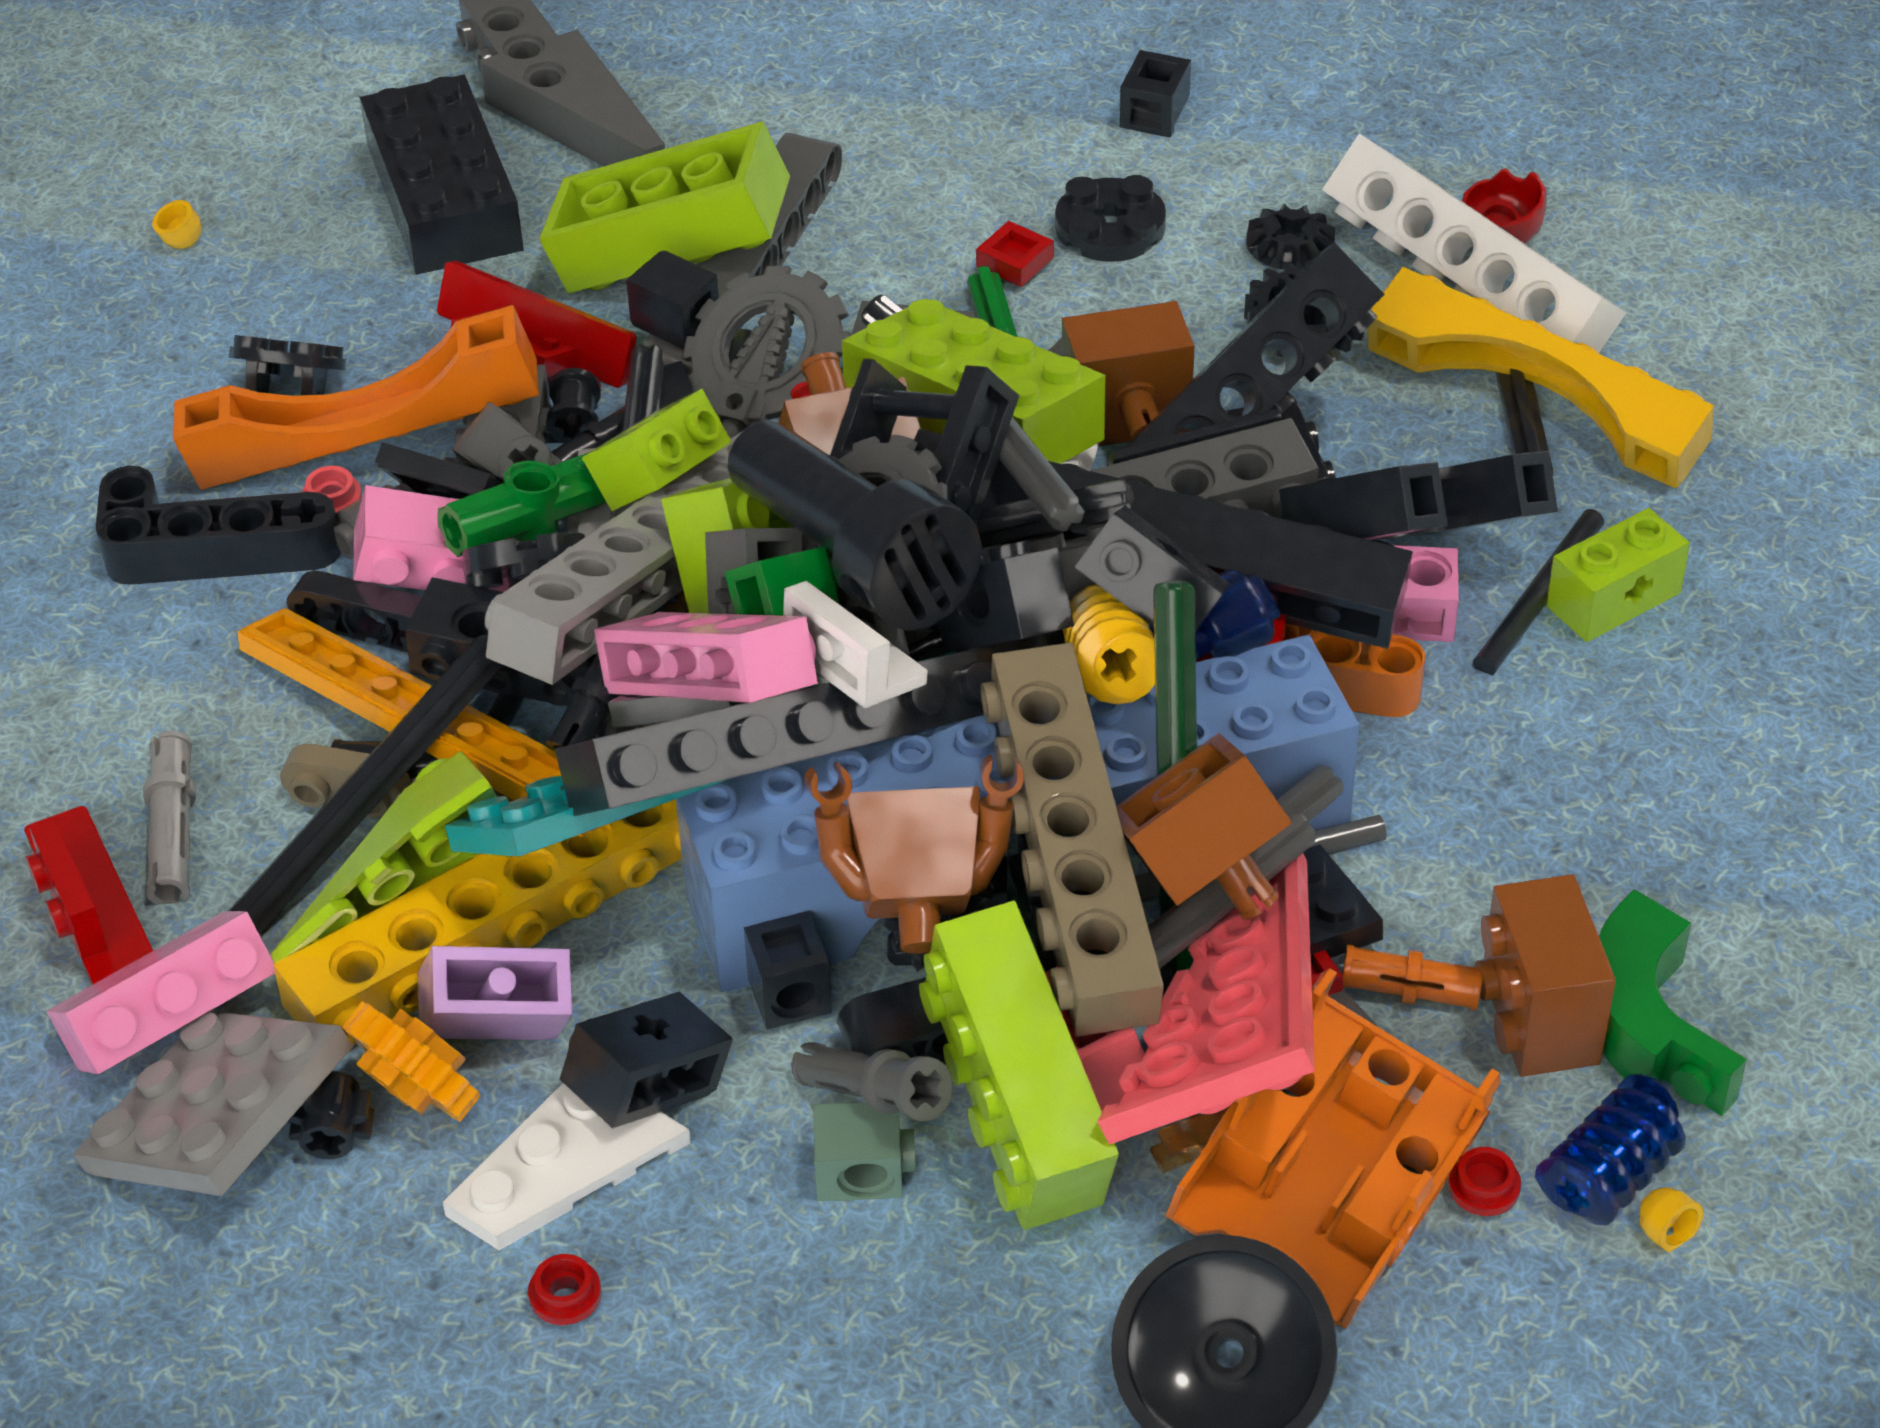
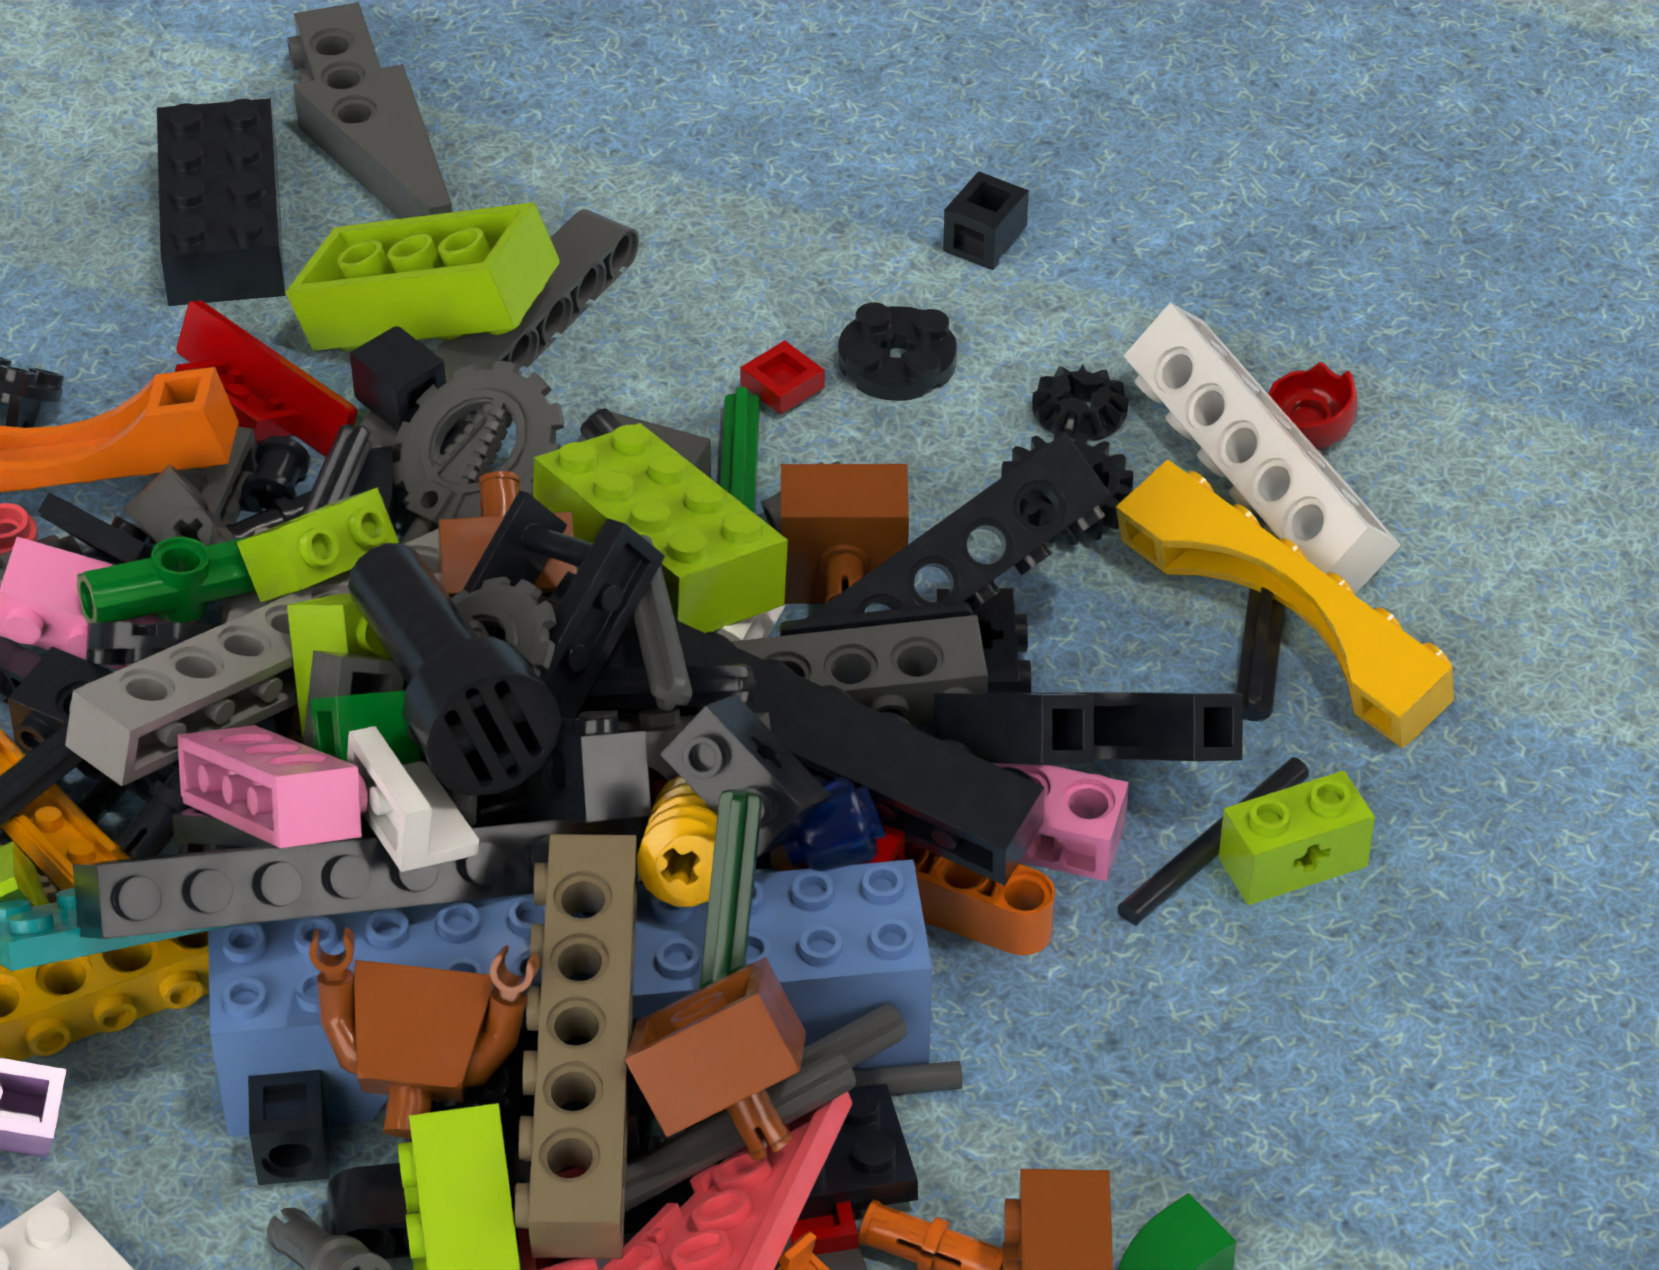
camera: 10 degrees right, 0 degrees up
(645, 1059) = (115, 1198): black brick -> none

